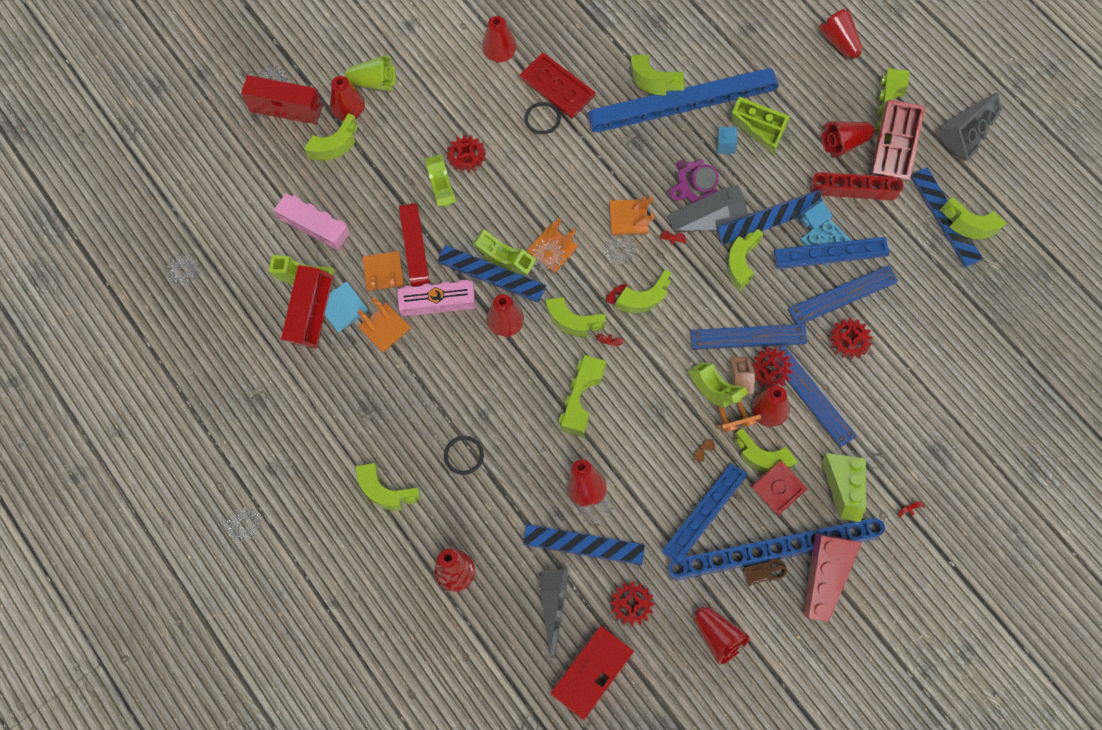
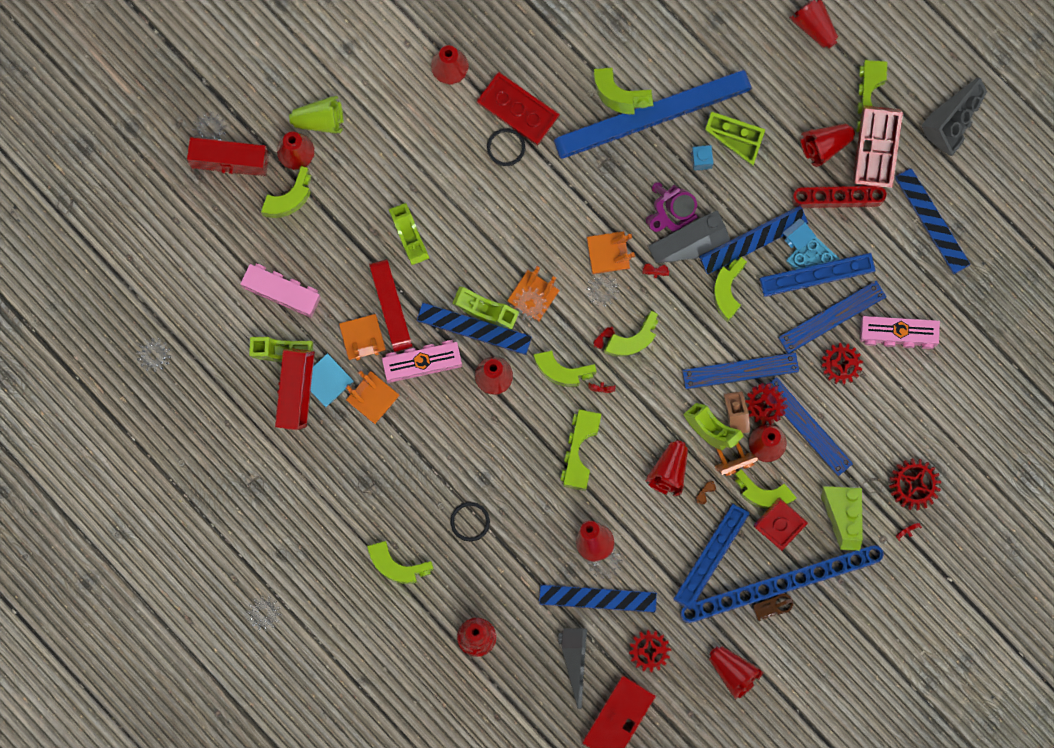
camera: 10 degrees left, 10 degrees up
(466, 153) = (423, 193): red gear -> none
(669, 423) = (670, 470): none -> red cone
(828, 573) = (832, 601): wedge -> none
(910, 314) = (899, 331): none -> bright pink brick
(935, 470) = (922, 487): none -> red gear
(969, 224) = (957, 231): lime arch -> none

